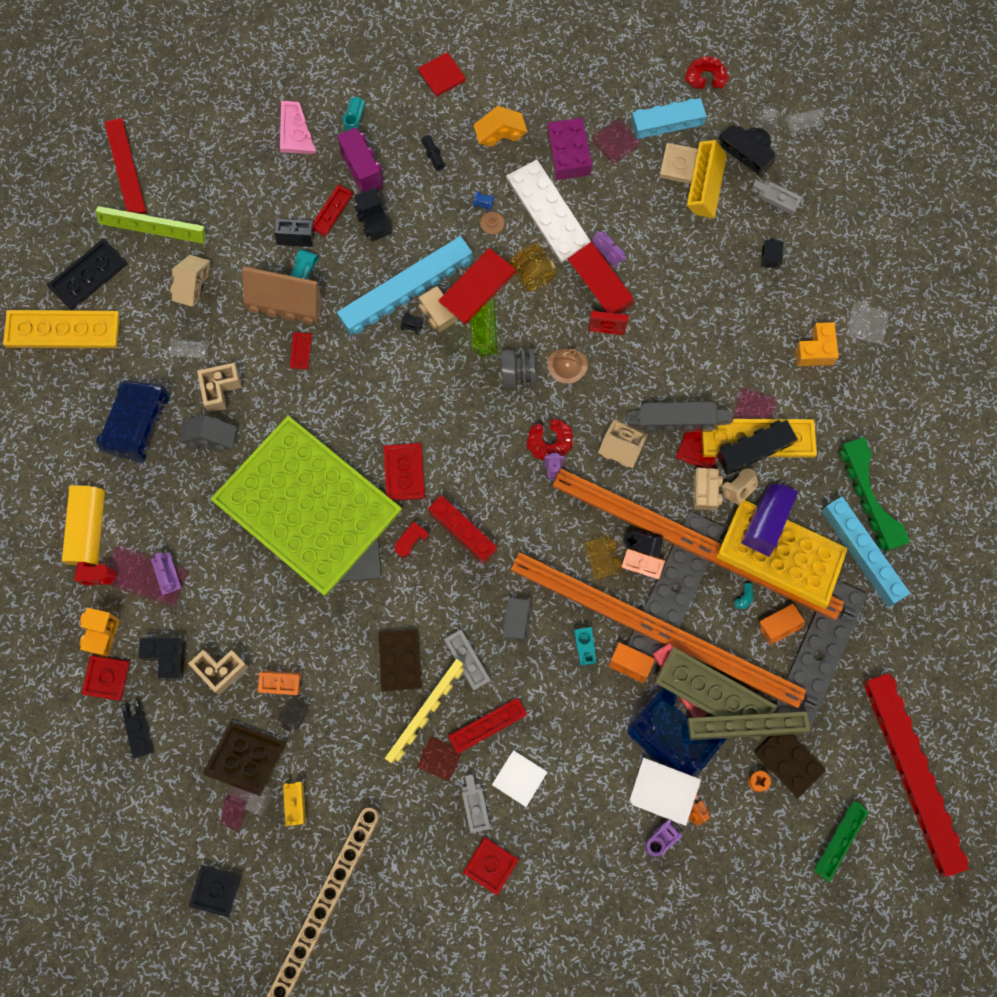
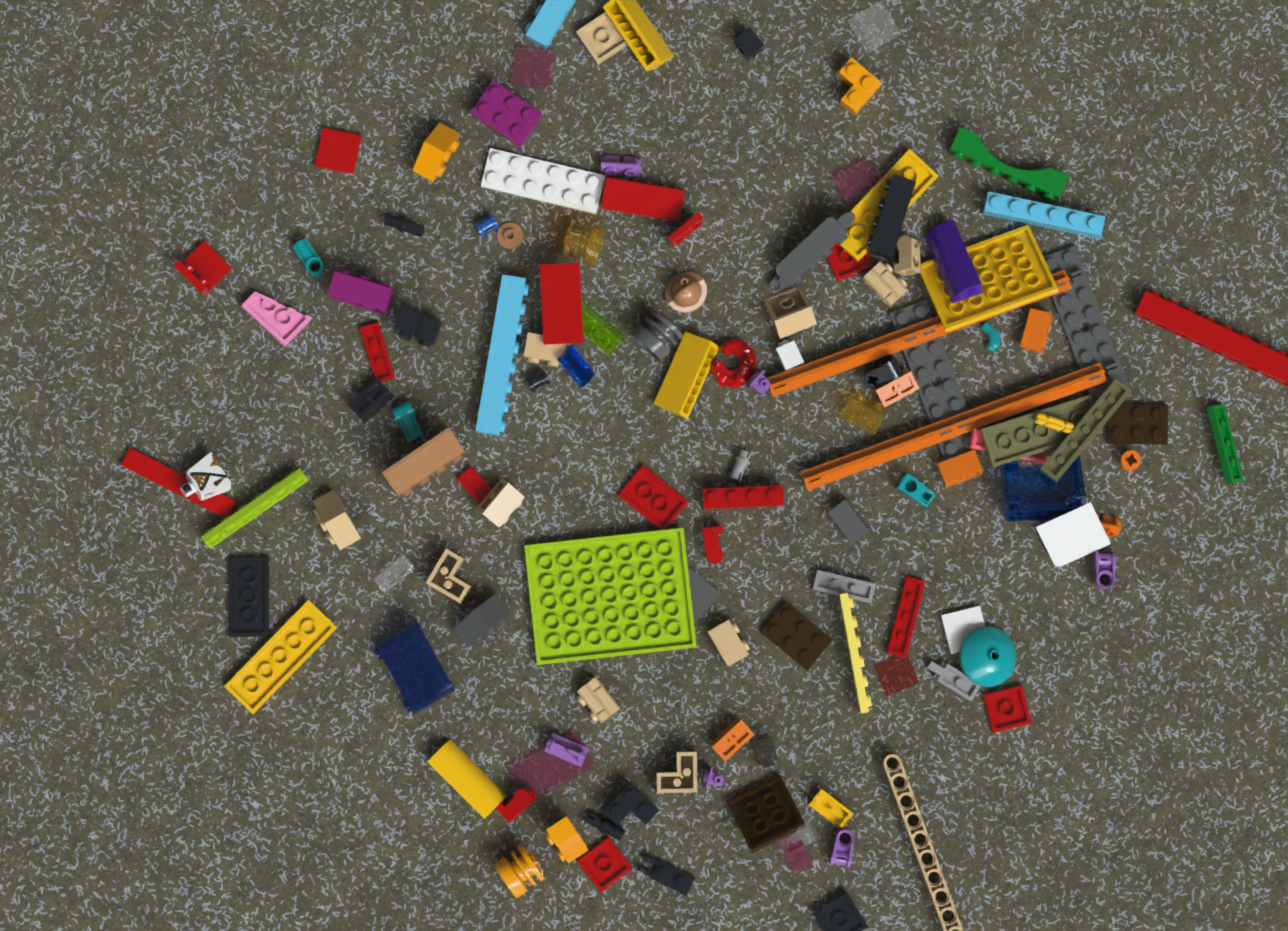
camera: 45 degrees left, 10 degrees up
(42, 619) = (519, 871): none -> light orange wheel
(133, 651) = (604, 825): none -> black pin
(141, 177) = (206, 479): none -> white torso
(223, 563) = (598, 700): none -> tan brick
(236, 694) = (713, 778): none -> medium lavender hinge
(268, 842) = (842, 850): none -> medium lavender piece
(282, 61) = (203, 268): none -> red bracket
(302, 374) = (500, 503): none -> brick
(349, 616) = (728, 642): none -> tan brick
(445, 337) = (576, 366): none -> clear blue tile
(484, 508) = (742, 461): none -> light grey pin
(504, 807) = (977, 656): none -> teal dish
(510, 415) = (686, 375): none -> yellow brick
(593, 469) = (789, 355): none -> white brick
(730, 697) = (1054, 423): none -> yellow axle

